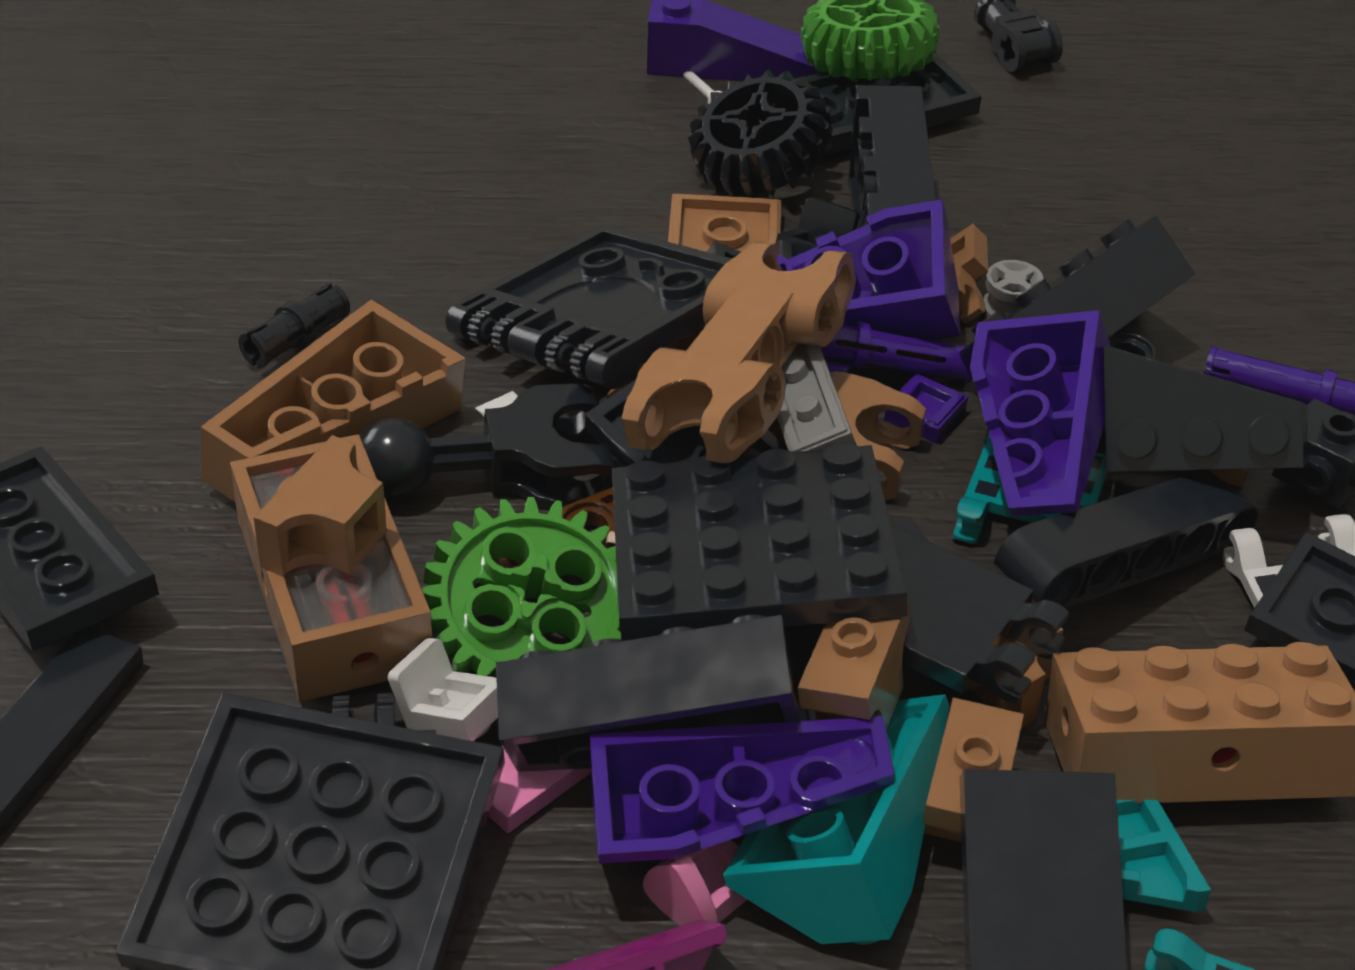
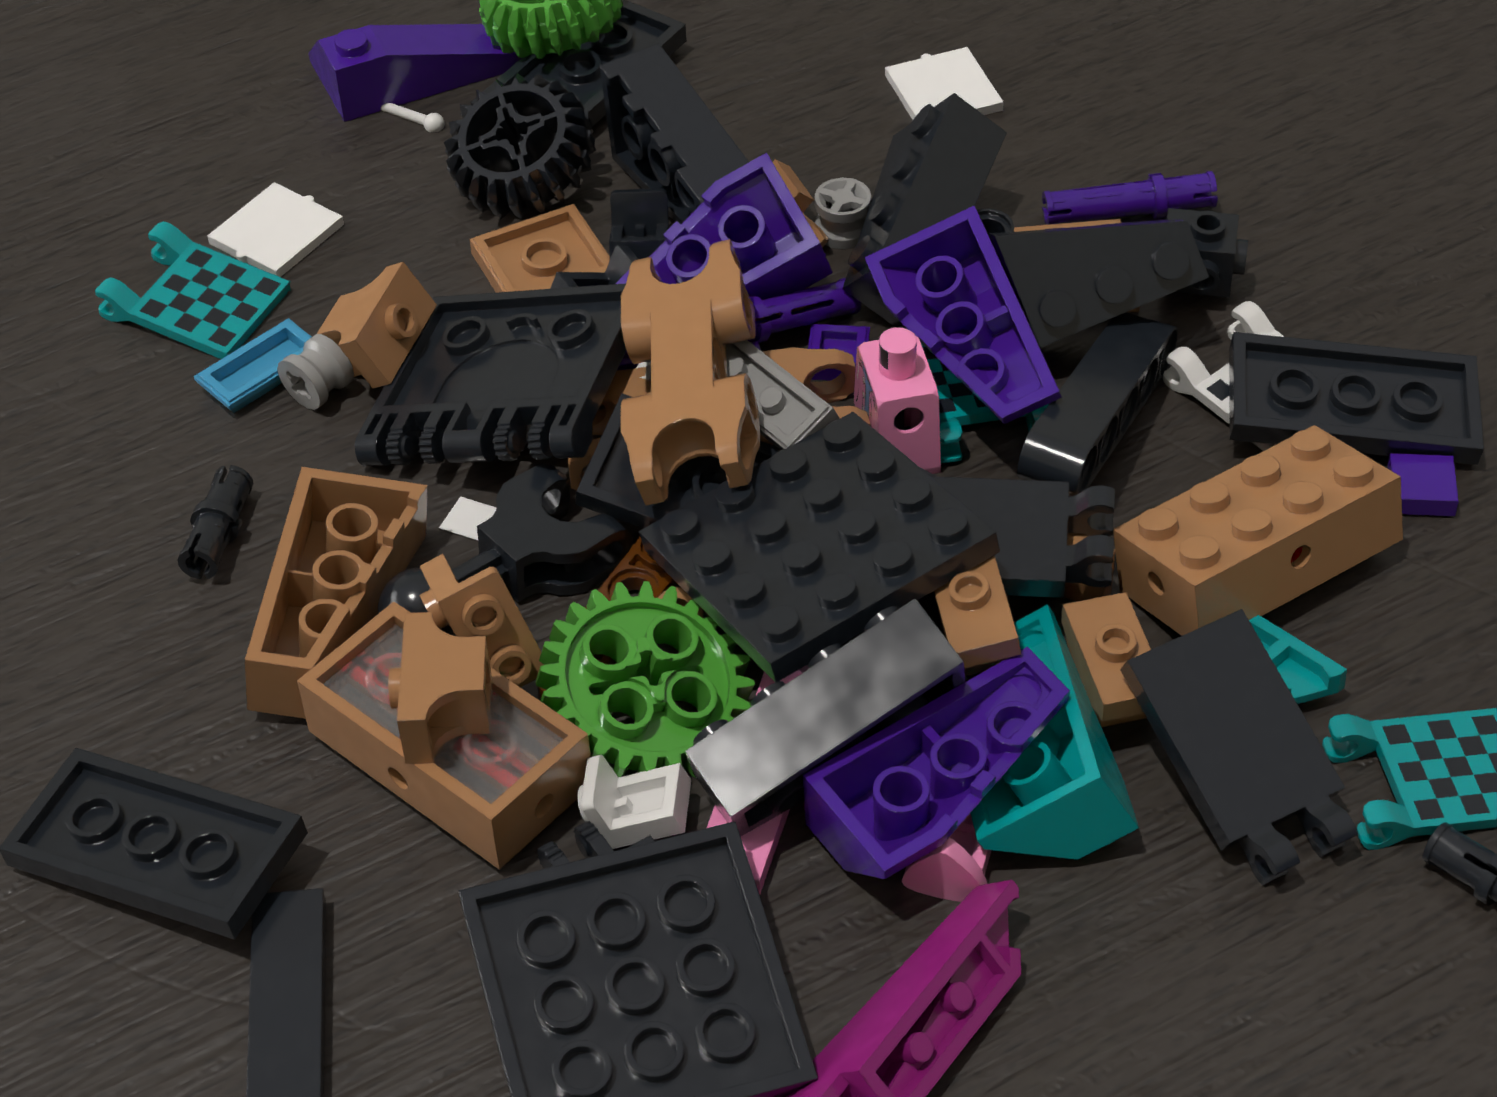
camera: 25 degrees left, 5 degrees up
(414, 482) = (483, 609): none -> medium nougat bracket
(426, 160) = (199, 299): none -> teal flag
(428, 225) = (253, 367): none -> dark azure tile
(463, 243) = (315, 371): none -> light grey wheel
(526, 132) = (276, 230): none -> white piece
(537, 224) = (380, 323): none -> medium nougat brick
(939, 436) = (895, 377): none -> bright pink torso
(1198, 230) = (938, 77): none -> white piece

